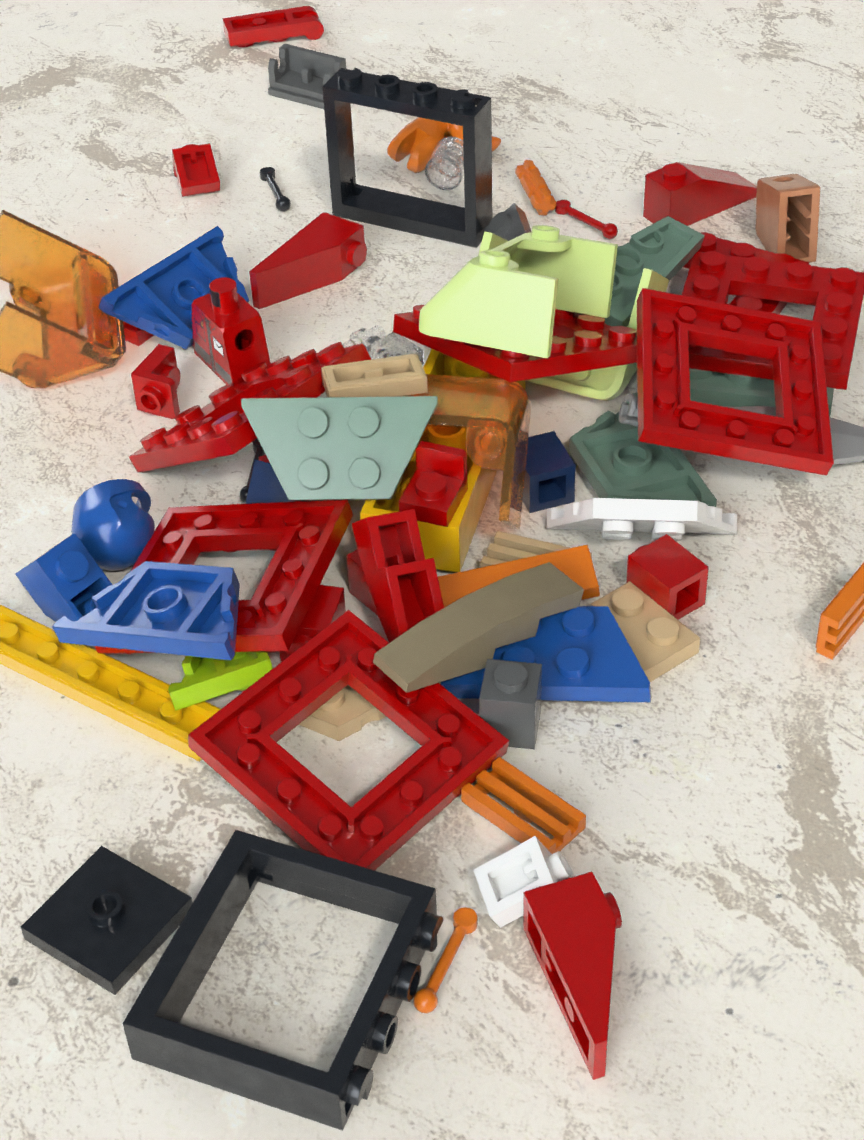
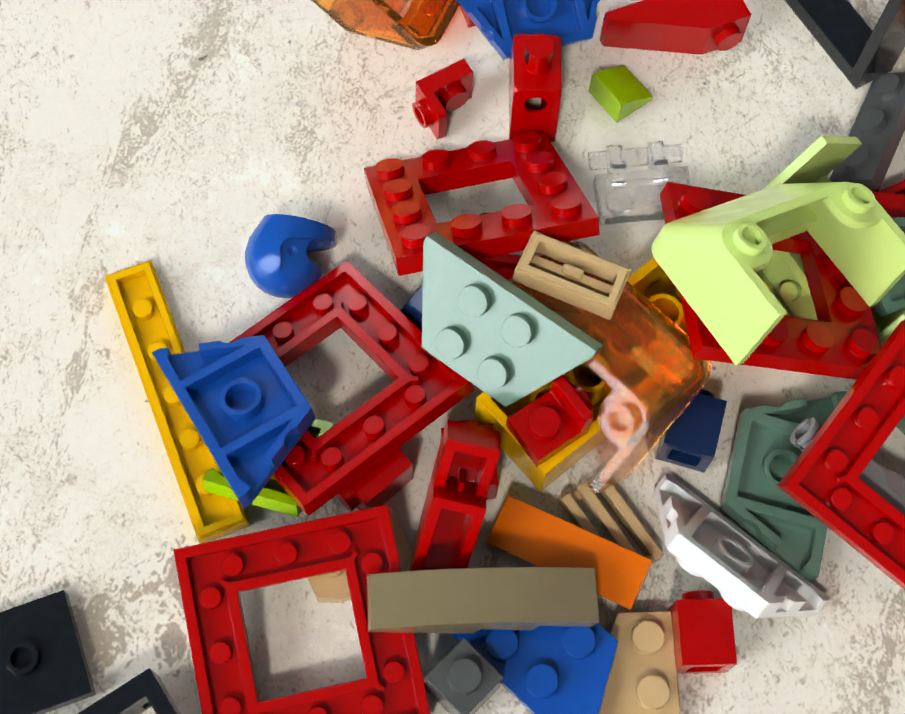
camera: 30 degrees right, 25 degrees up
(64, 580) = (212, 294): blue slope -> none
(297, 324) = (618, 92): none -> lime slope

